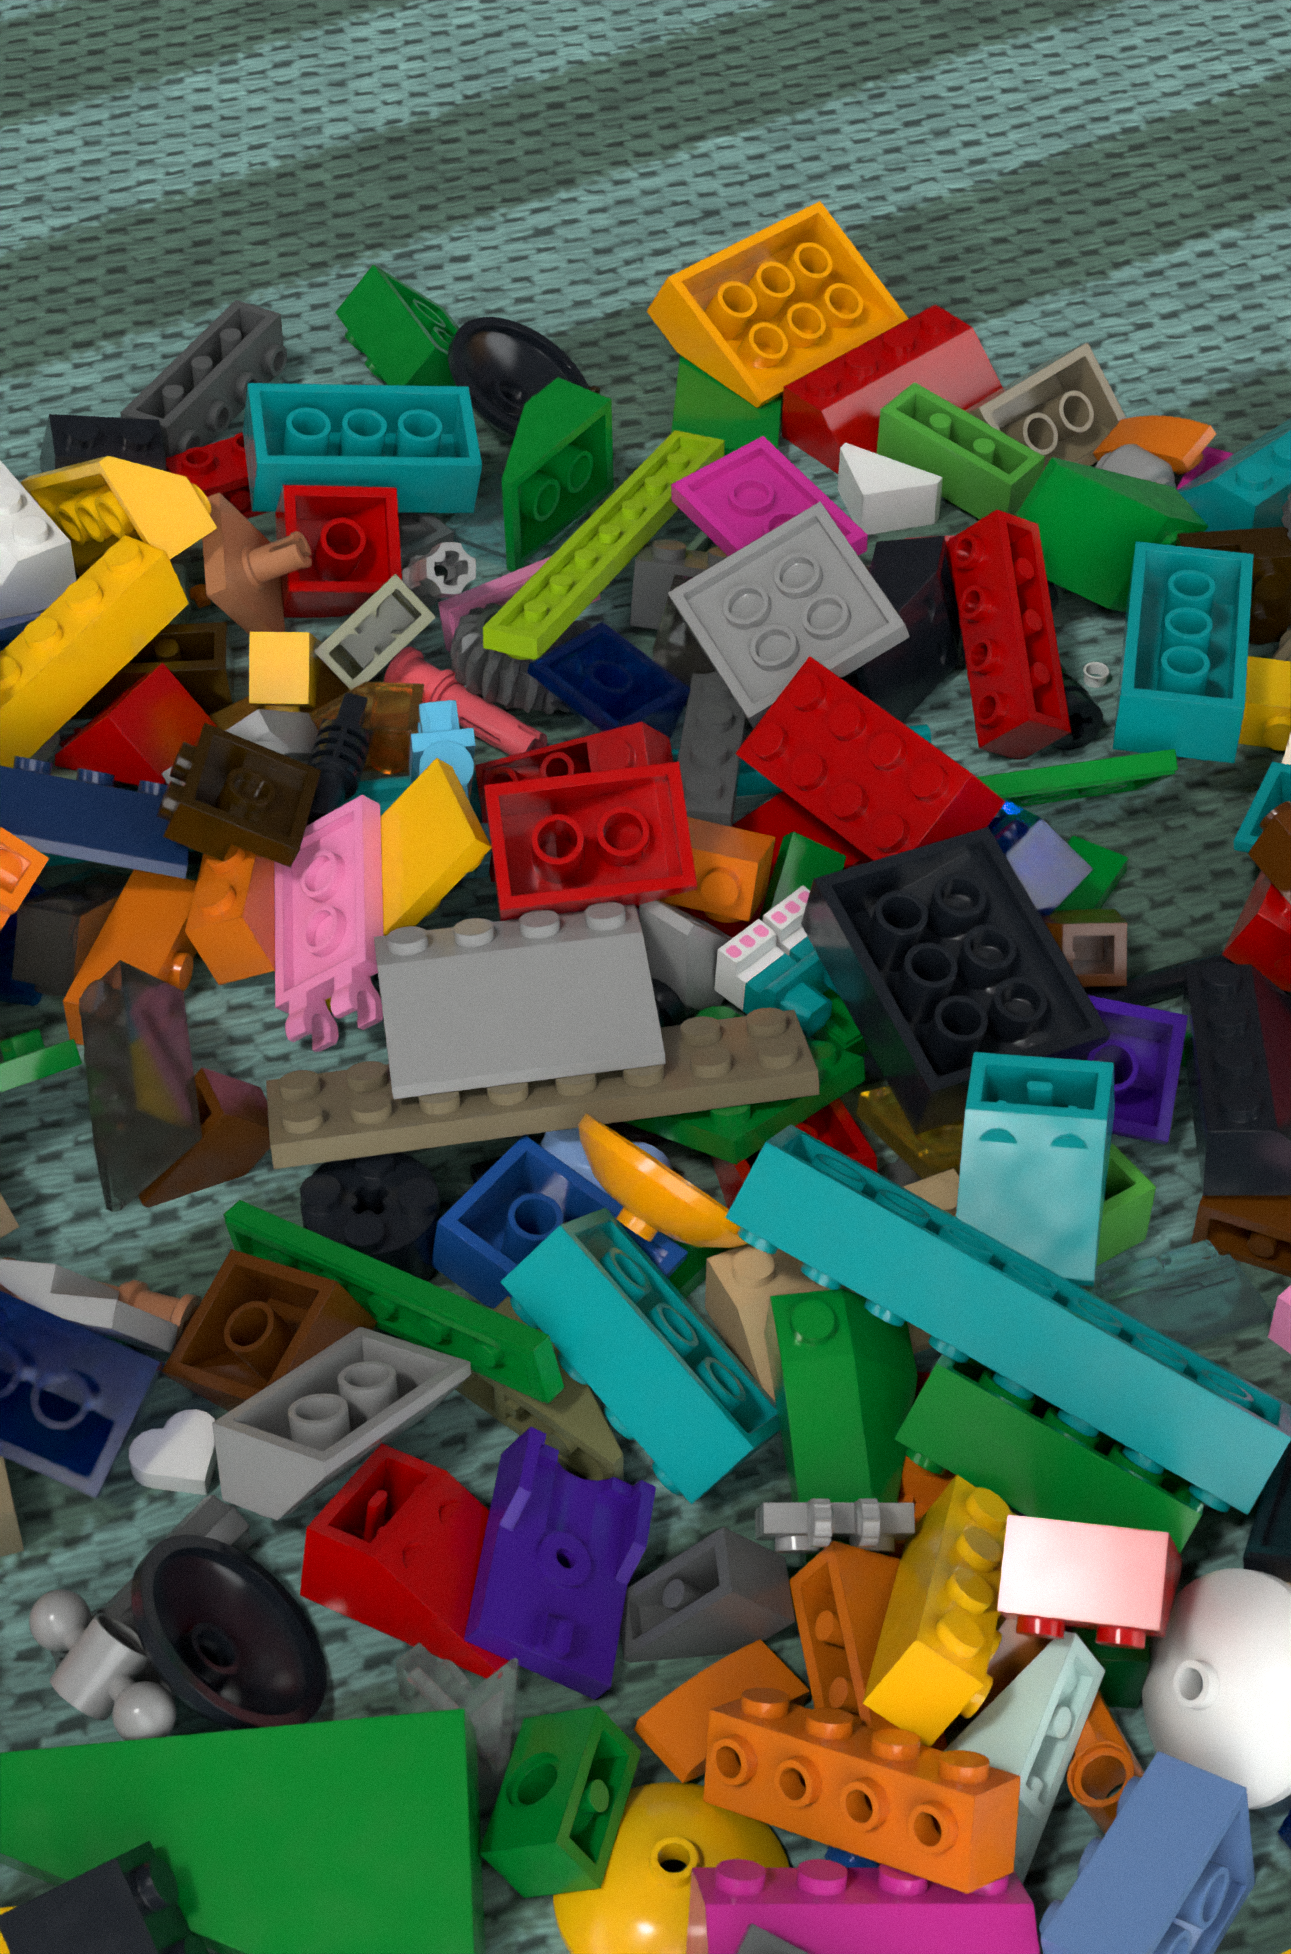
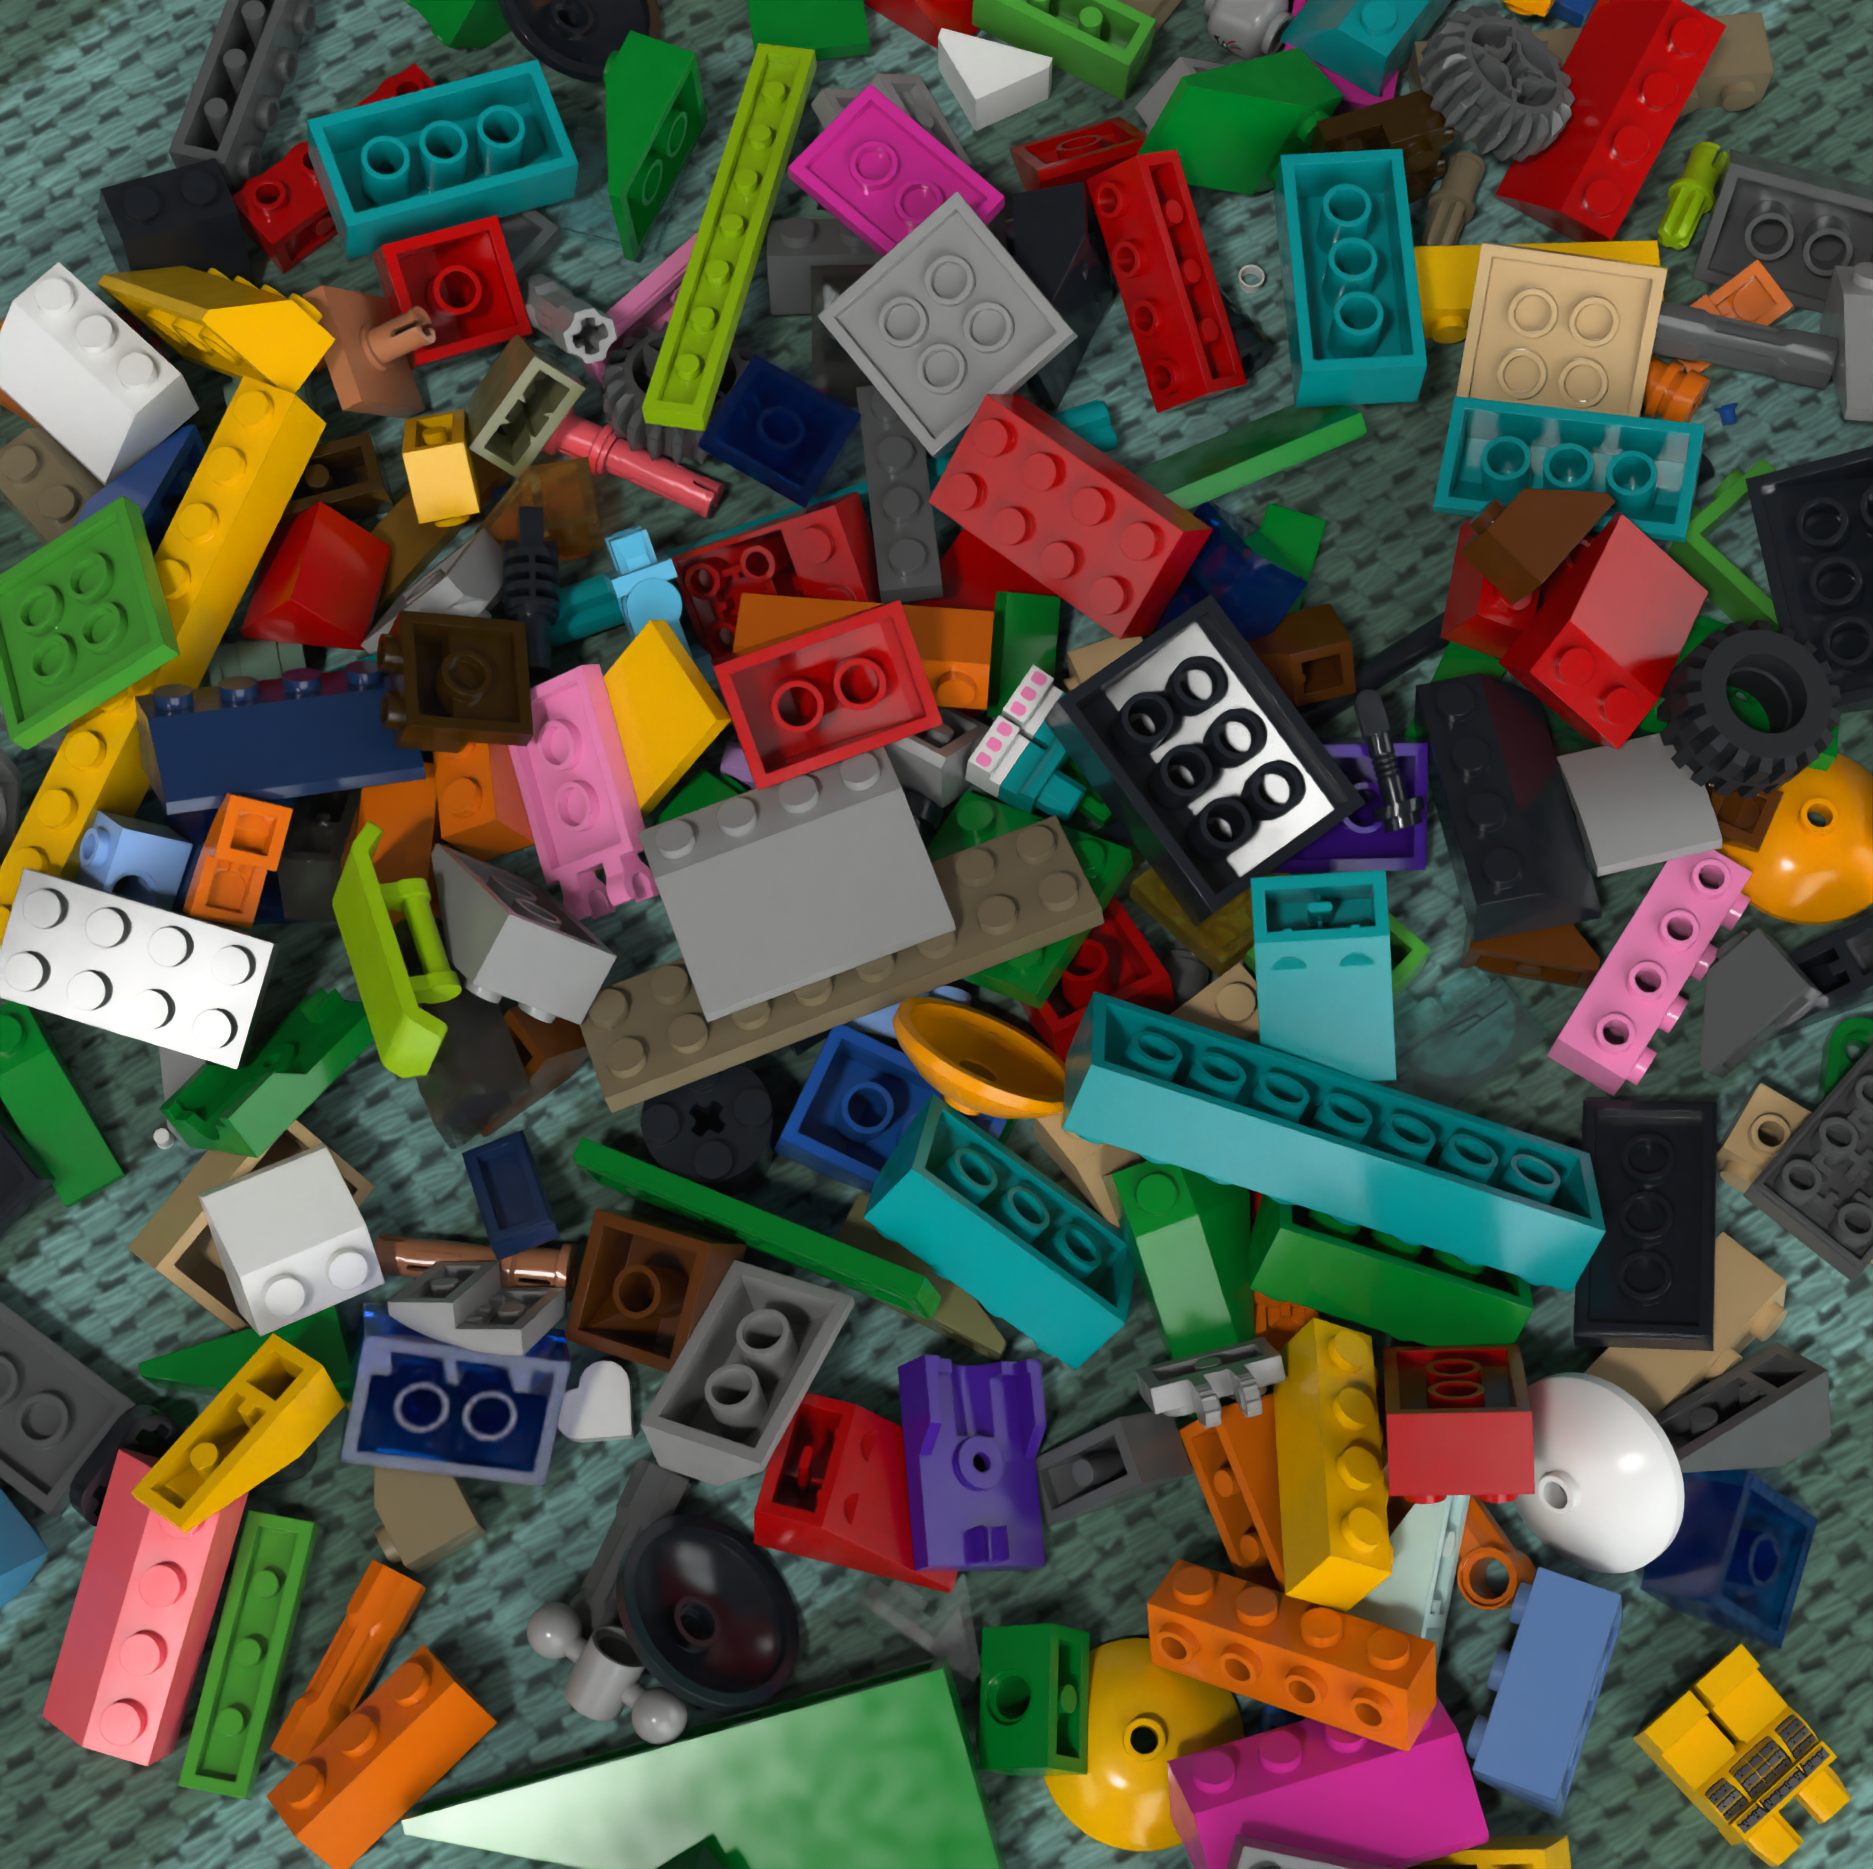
camera: 10 degrees left, 25 degrees up
(92, 1015) = (402, 1031): none -> lime piece
(151, 1245) = (510, 1195): none -> dark blue tile
(232, 1012) = (517, 939): none -> light grey slope
(679, 1722) = (1141, 1561): orange slope -> none
(1145, 1063) = (1398, 809): none -> black hinge

